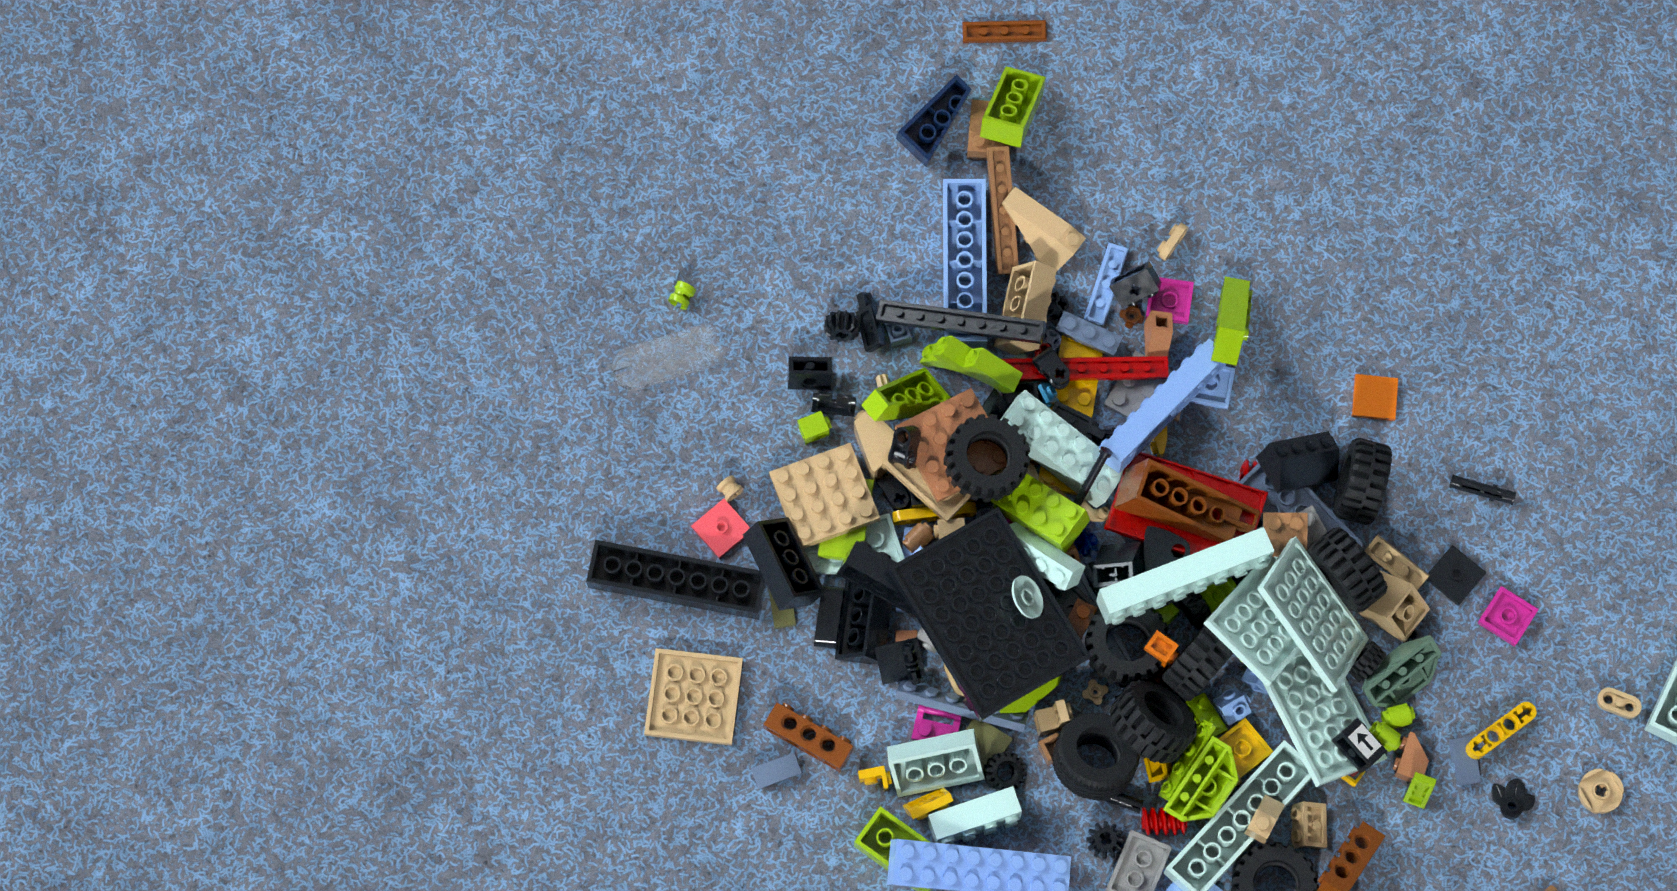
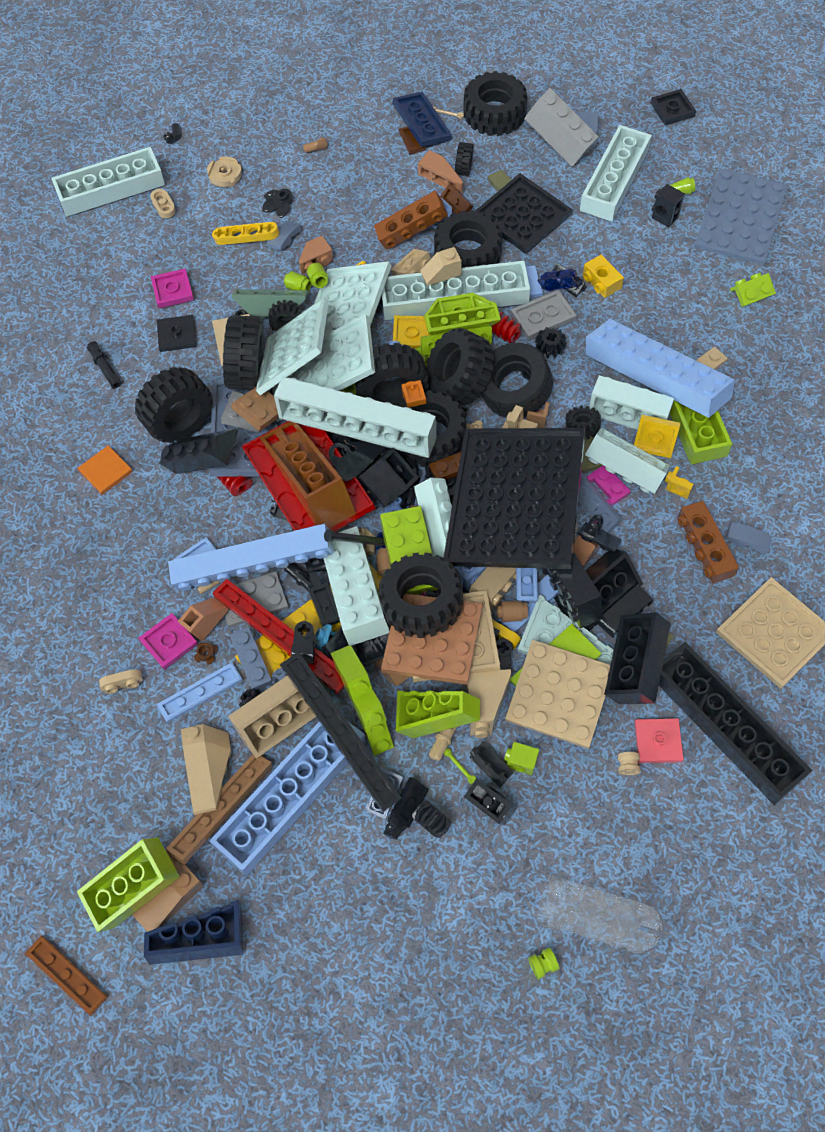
camera: 140 degrees left, 10 degrees down
(840, 386) = (448, 753): none -> lime hinge
(903, 449) = (475, 654): black piece -> none
(1027, 596) = (480, 480): light aqua dish -> none
(1141, 276) = (181, 664): black brick -> none
(1232, 320) = (141, 580): lime wedge -> none
(1359, 745) = (339, 272): black brick -> none
(1396, 562) = (204, 360): tan plate -> none
(1419, 790) = (327, 232): lime plate -> none

